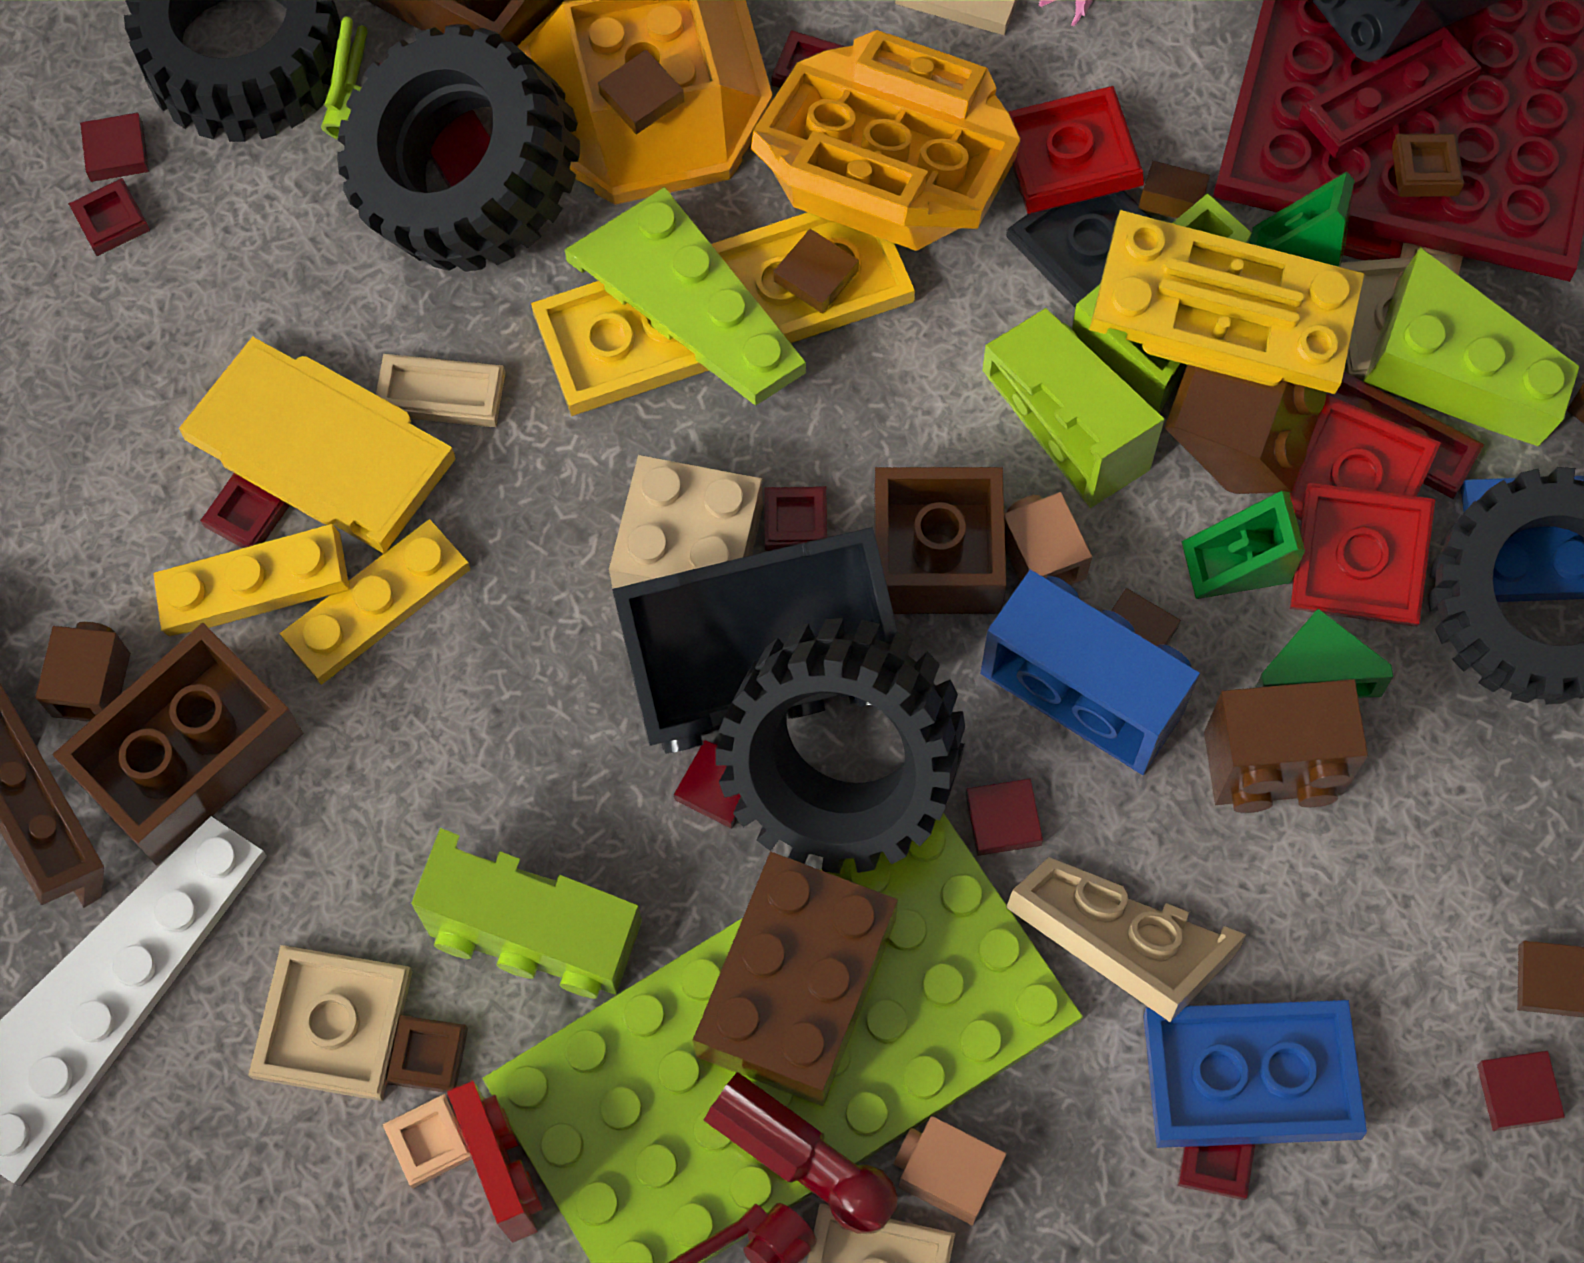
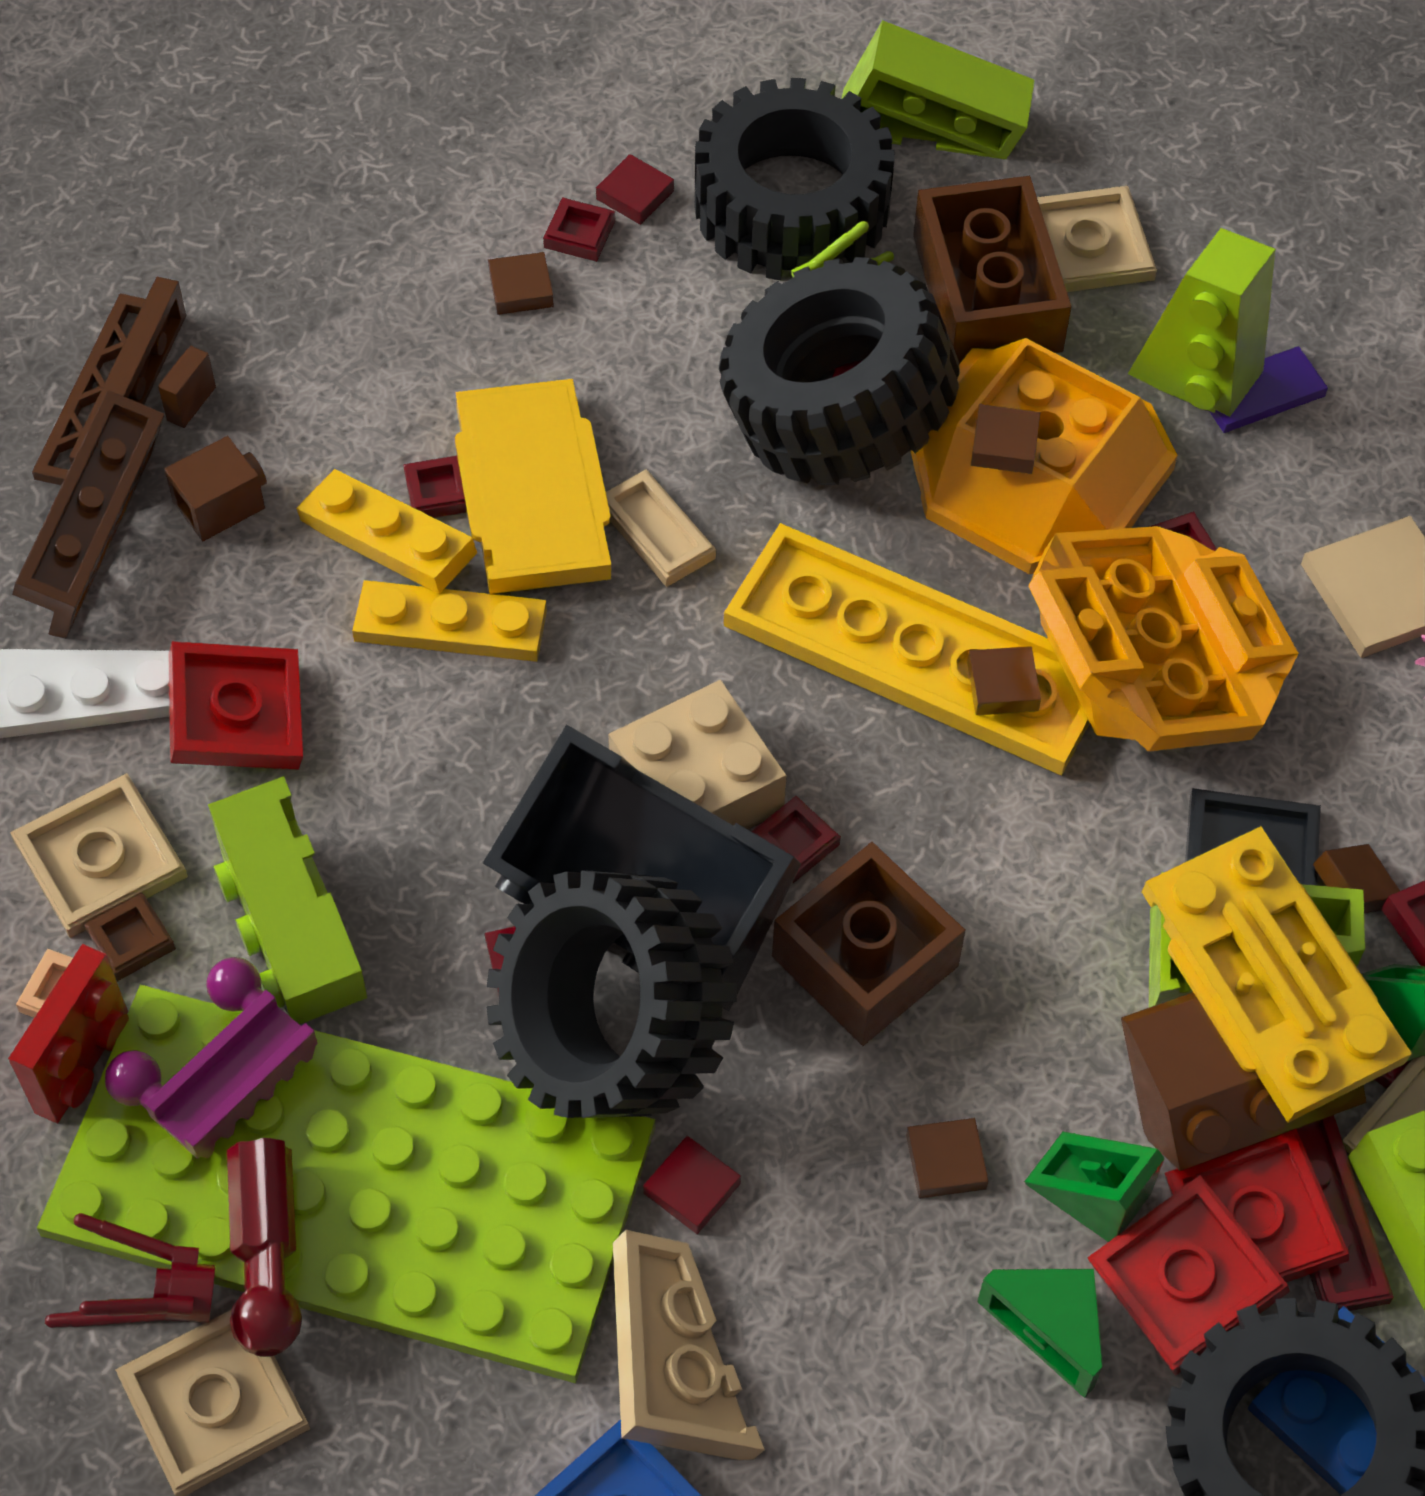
camera: 45 degrees right, 10 degrees down
(116, 299) = (520, 283): none -> reddish brown tile
(179, 743) = (212, 579): reddish brown brick -> none
(304, 817) = (235, 706): none -> red plate
(637, 1071) = (227, 1073): none -> magenta gear
(690, 294) = (894, 605): lime wing -> none
(795, 978) = (400, 1123): reddish brown brick -> none
(948, 1168) = (353, 1374): nougat brick -> none
(1045, 539) = (946, 1026): nougat brick -> none
(1074, 150) = (1308, 777): red tile -> none
(1074, 405) = (1086, 952): lime wedge -> none
(1088, 670) = (863, 1135): blue brick -> none
(1285, 744) = (945, 1335): reddish brown brick -> none

